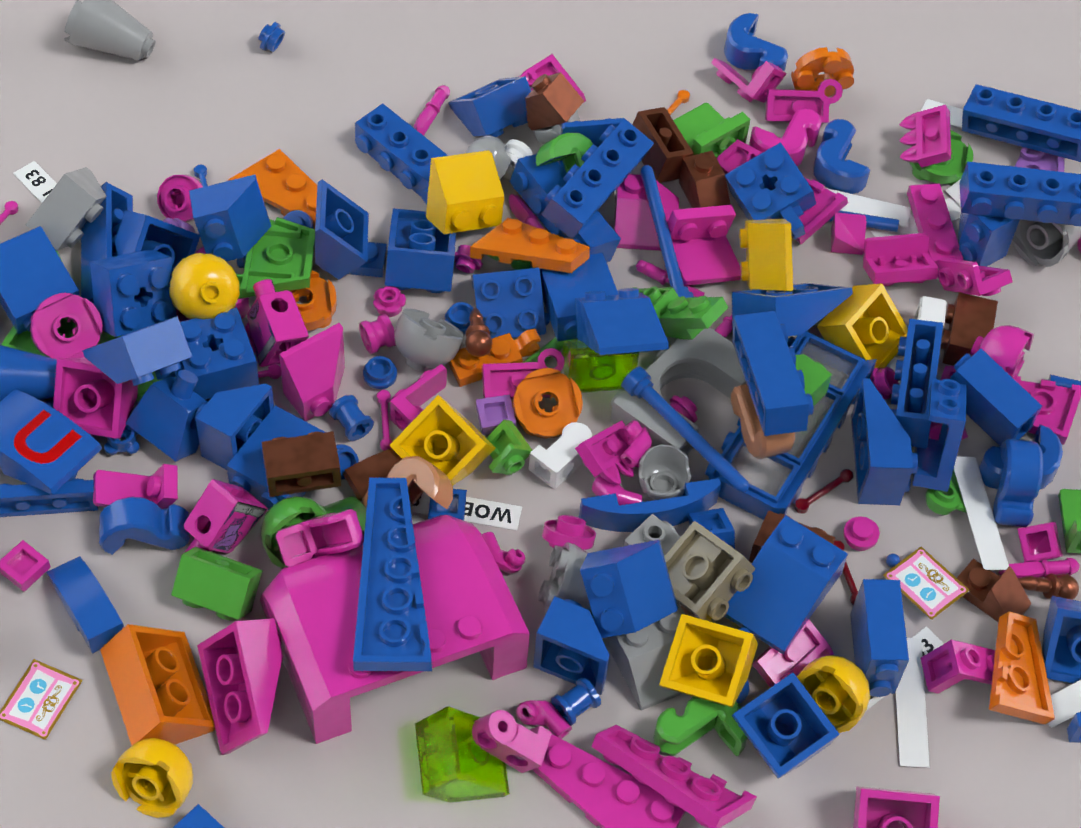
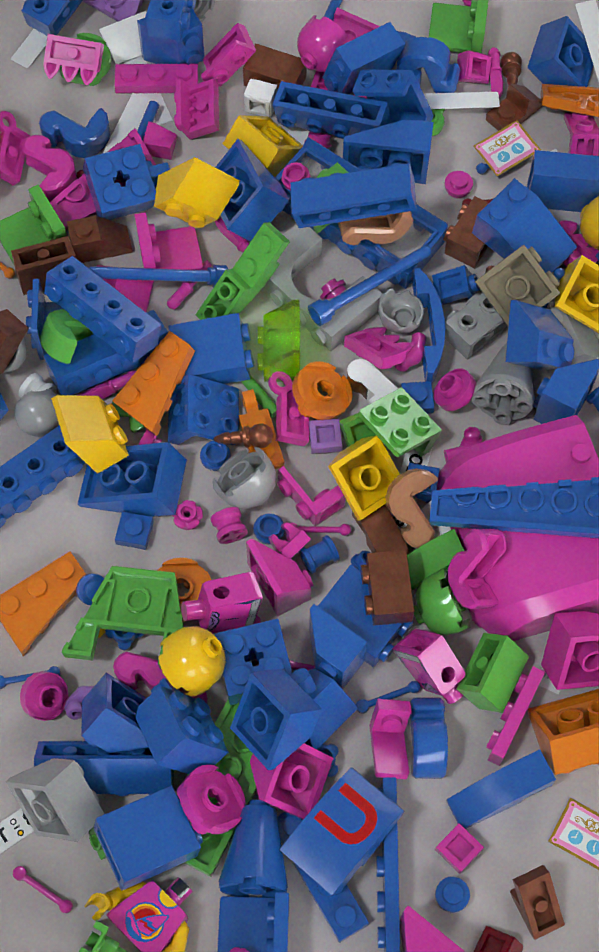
camera: 80 degrees left, 10 degrees up
(168, 611) = (513, 715): none -> dark pink plate
(184, 476) = (363, 705): none -> blue hinge
(230, 216) = (112, 638): blue slope -> none
(339, 232) = (117, 544): blue slope -> none
(364, 391) = (295, 541): none -> dark pink tile
(506, 468) = (401, 423): none -> bright green bracket
(558, 502) = (421, 393): none -> blue plate
(619, 322) = (275, 310): blue slope -> none
(639, 443) = (371, 323): dark pink arm -> none
(818, 348) = (294, 172): none -> dark pink plate

